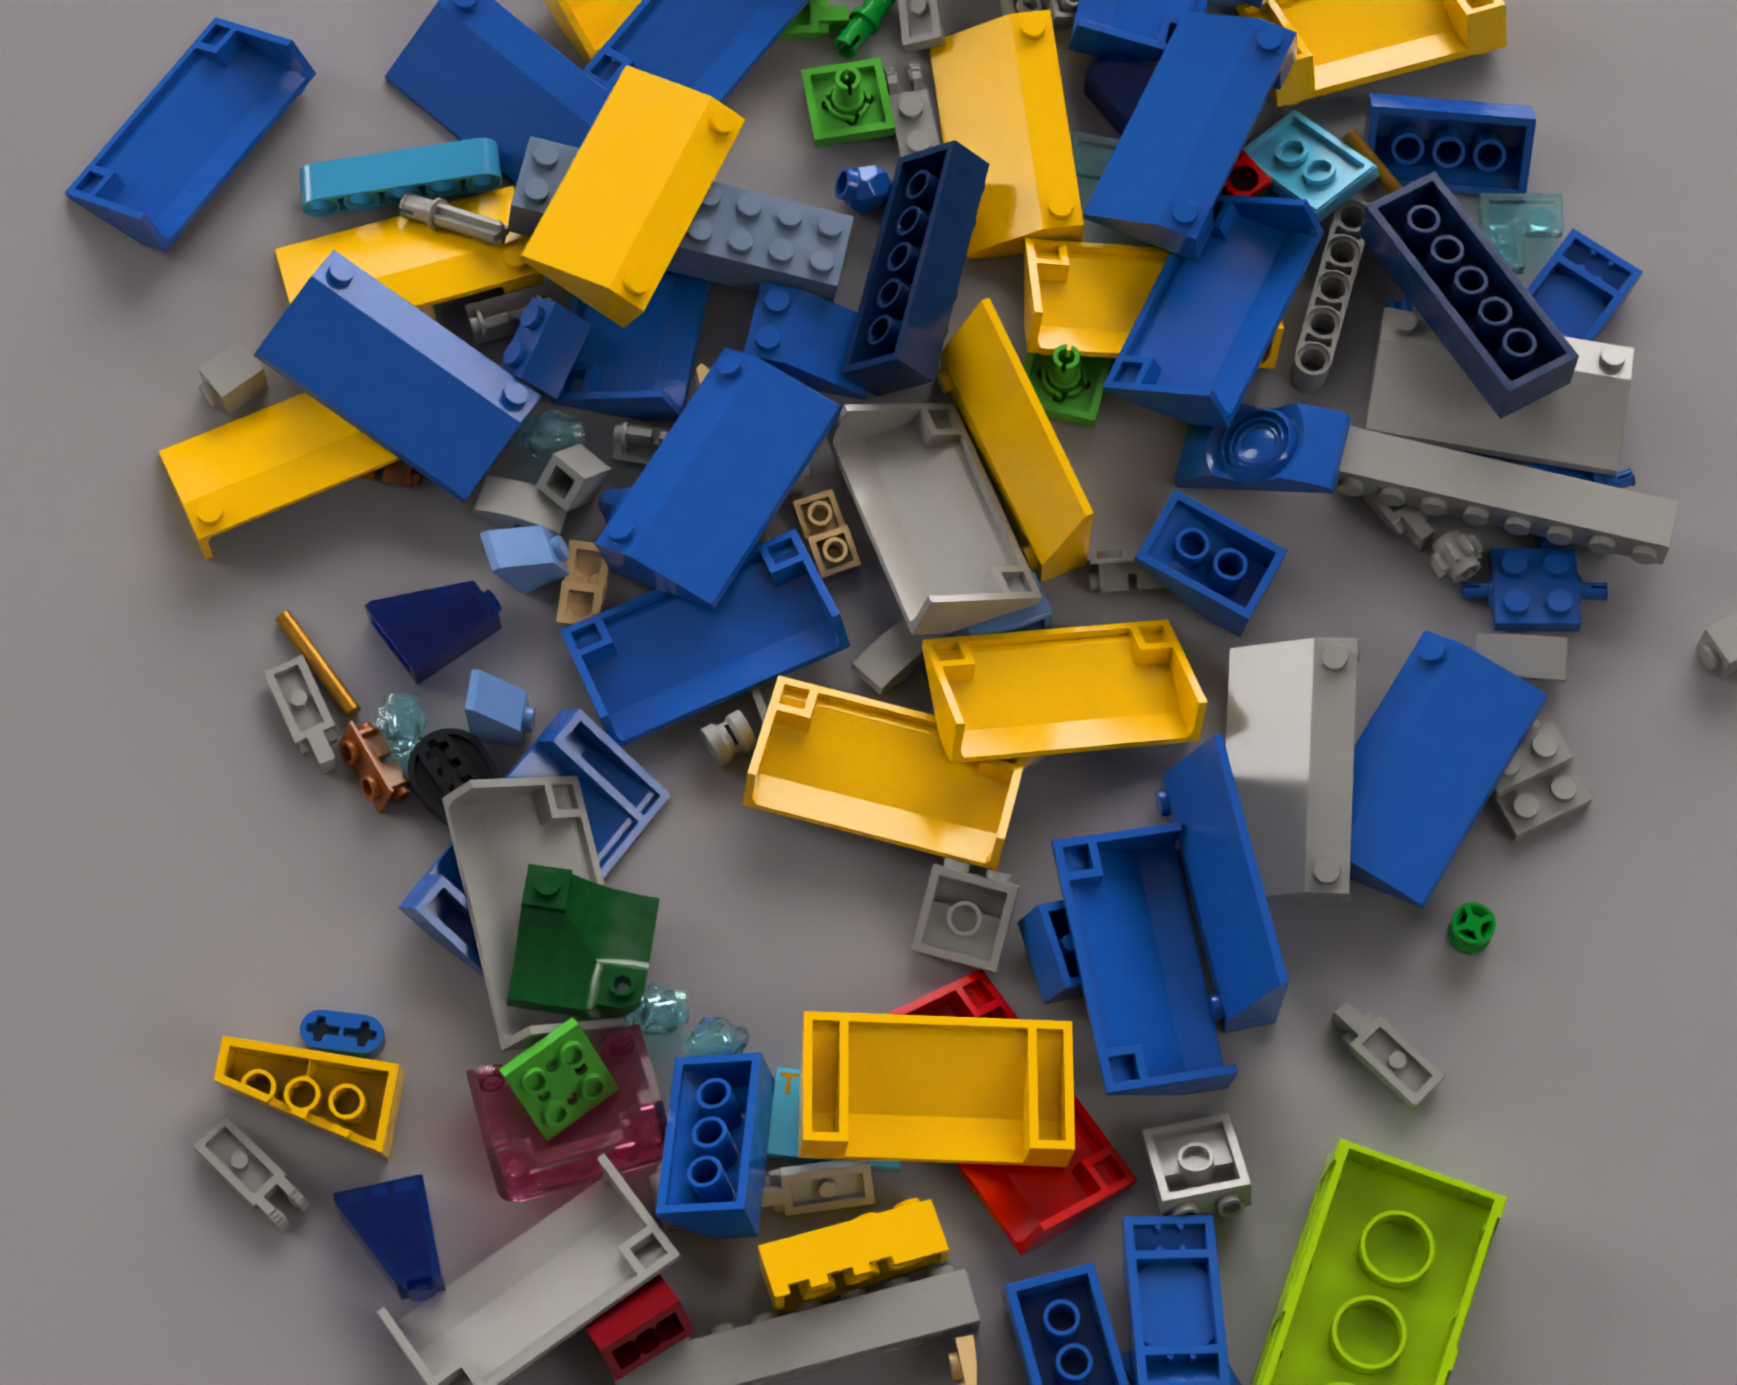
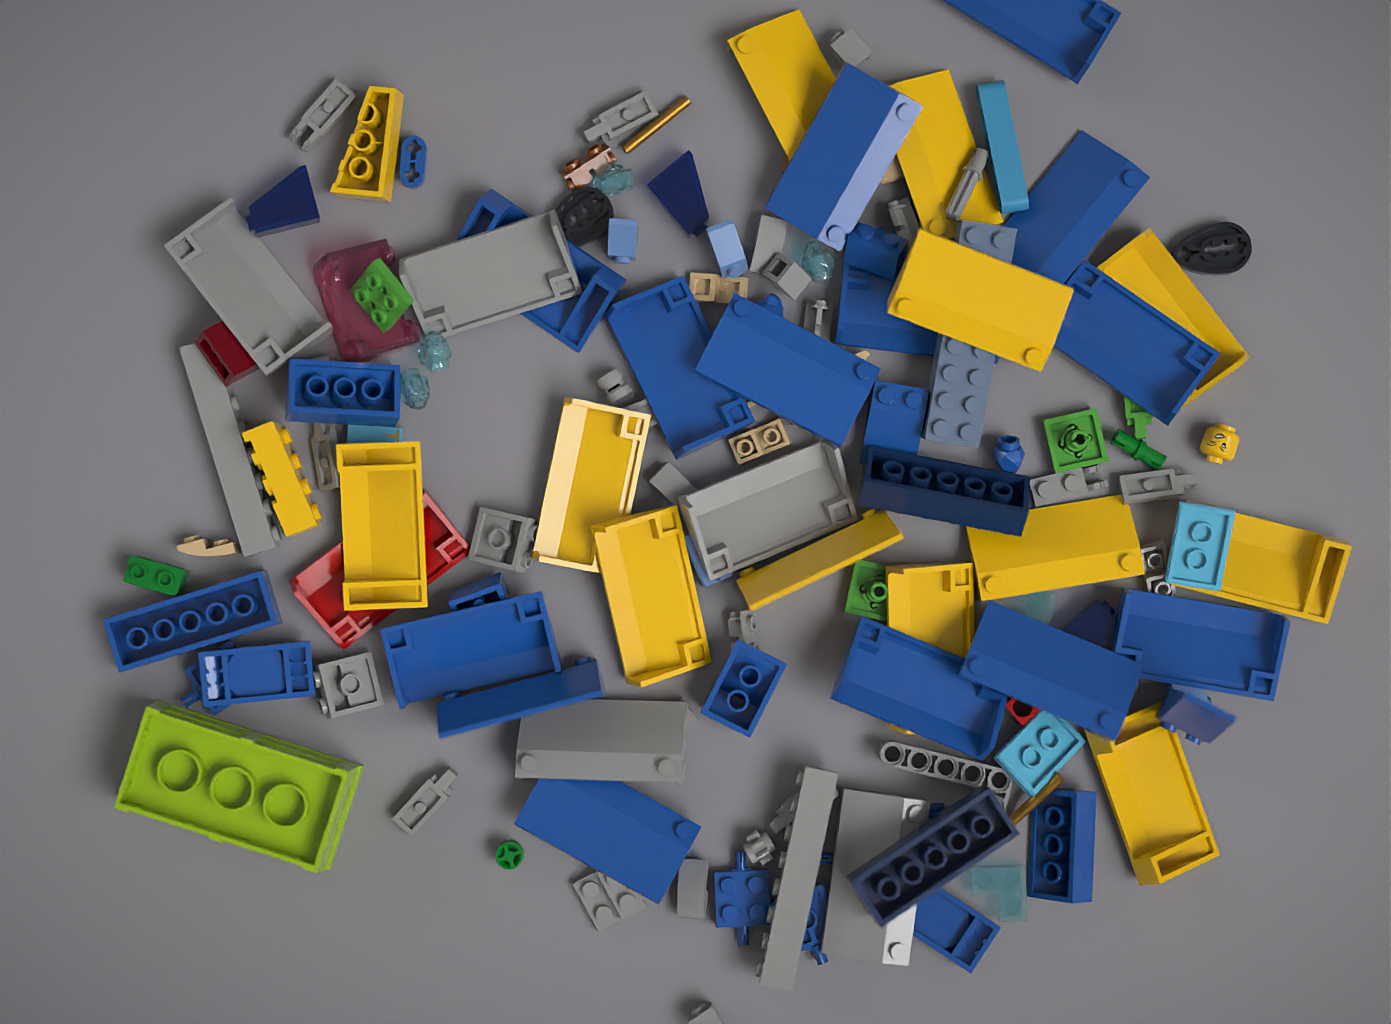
camera: 90 degrees right, 20 degrees up
(579, 946) = (465, 303): dark green slope -> none
(1267, 450) = (821, 726): blue slope -> none

